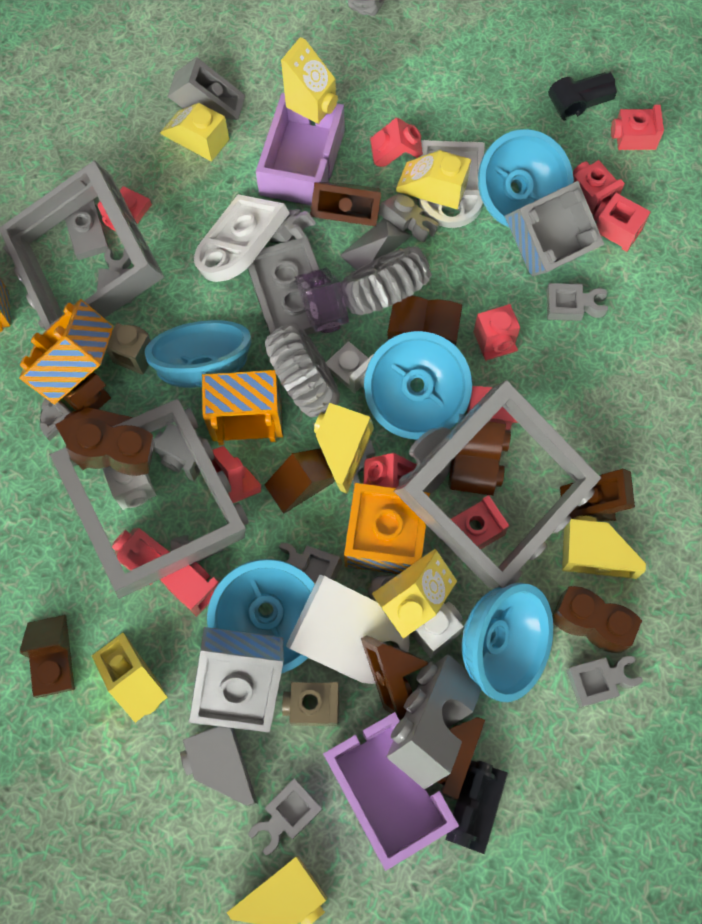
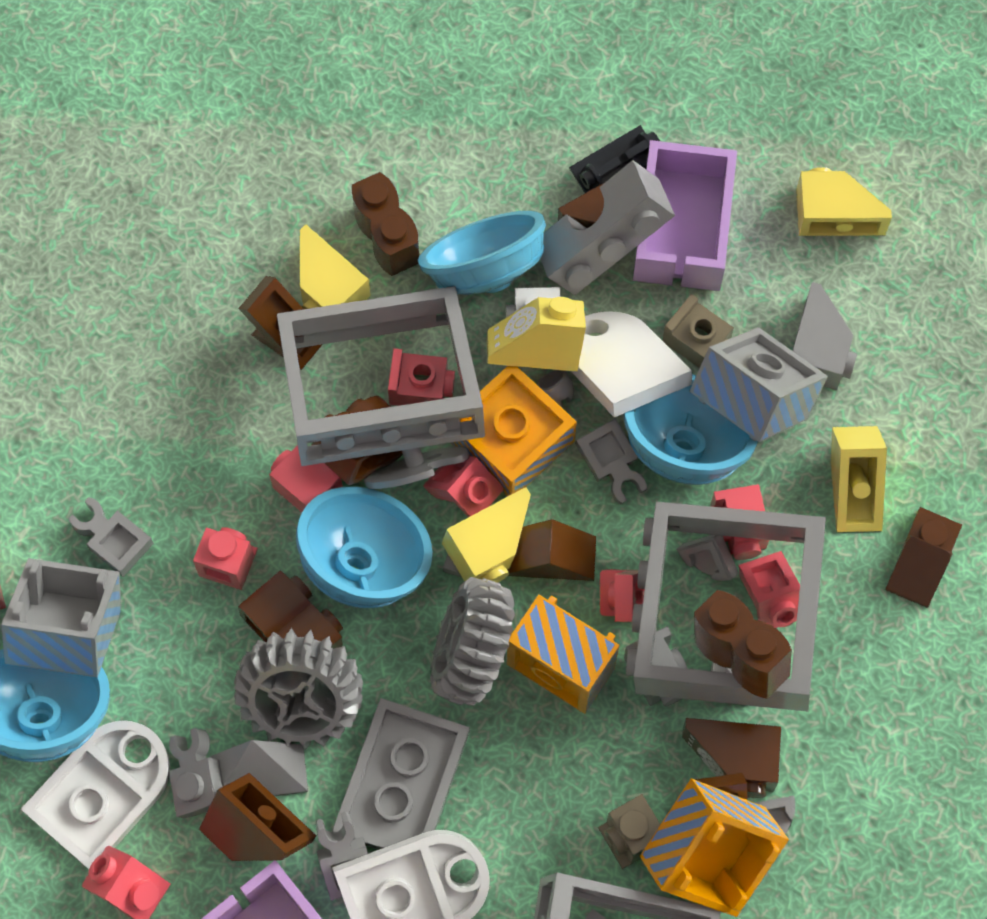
camera: 145 degrees left, 0 degrees up
(198, 349) = (548, 774): medium azure hat -> none
(290, 813) = (784, 268): light grey plate -> none
(322, 300) = (383, 720): clear purple slope -> none
(349, 366) = (405, 635): white bracket -> none
(388, 670) = (607, 301): reddish brown slope -> none
(436, 178) = (130, 787): light yellow slope -> none
(597, 682) = (427, 182): light grey plate -> none

